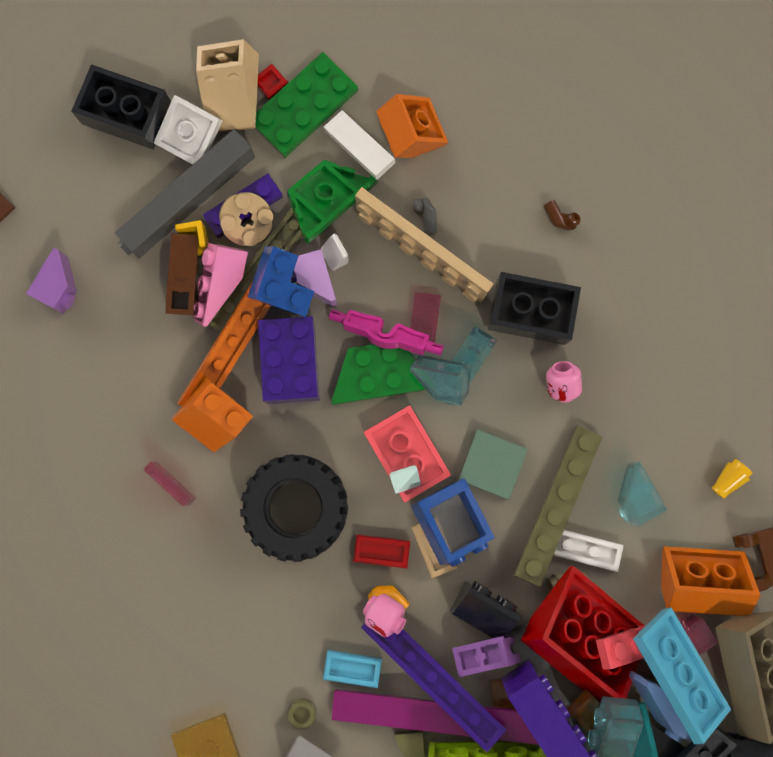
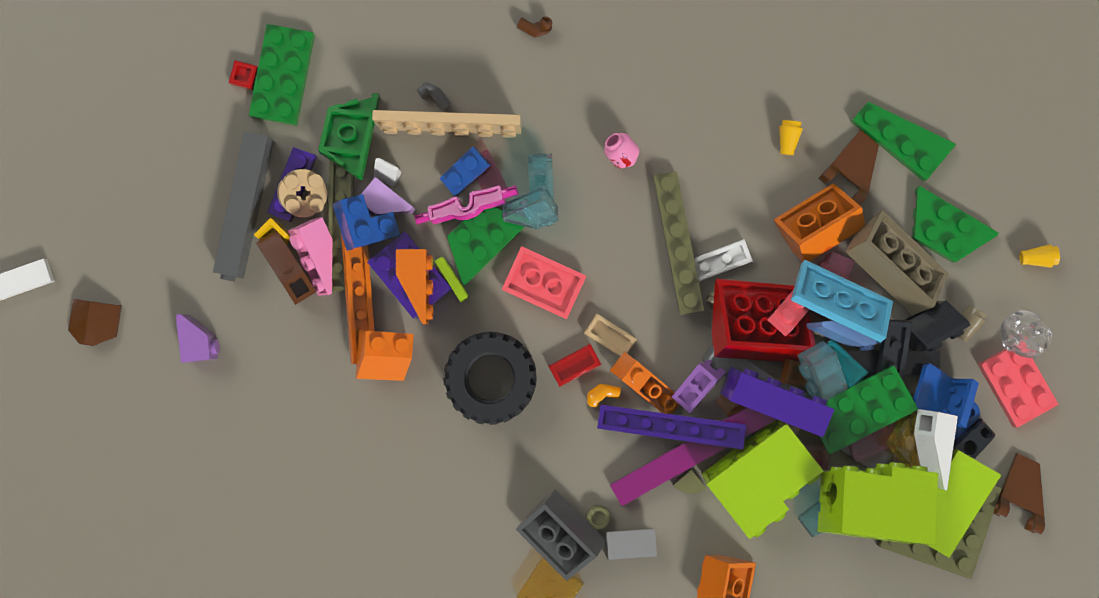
camera: 30 degrees left, 5 degrees up
(121, 106) = (146, 173): black brick -> none
(169, 483) = (387, 425): clear pink tile -> none
(187, 130) = (209, 157): white plate -> none
(229, 83) = (215, 101): tan slope -> none
(254, 707) = (561, 535): none -> dark grey slope
(290, 363) = (413, 274): none -> orange slope
(325, 386) = (452, 279): none -> lime tile
(352, 668) = (611, 461): medium azure tile -> none
(359, 145) = (346, 77): white tile -> none
(384, 615) = (607, 407): bright pink head -> none
(405, 479) = (555, 301): light aqua slope -> none
(406, 301) = (465, 171): none -> blue plate
(411, 125) = (375, 35): orange slope -> none
(435, 617) = (645, 383): none -> orange slope
(453, 525) = (612, 310): blue window -> none
(481, 610) = (676, 356): black slope -> none
(493, 464) = (611, 247): sand green tile -> none
(534, 308) = (562, 111): black brick -> none
(638, 496) = (731, 196): clear light blue slope -> none

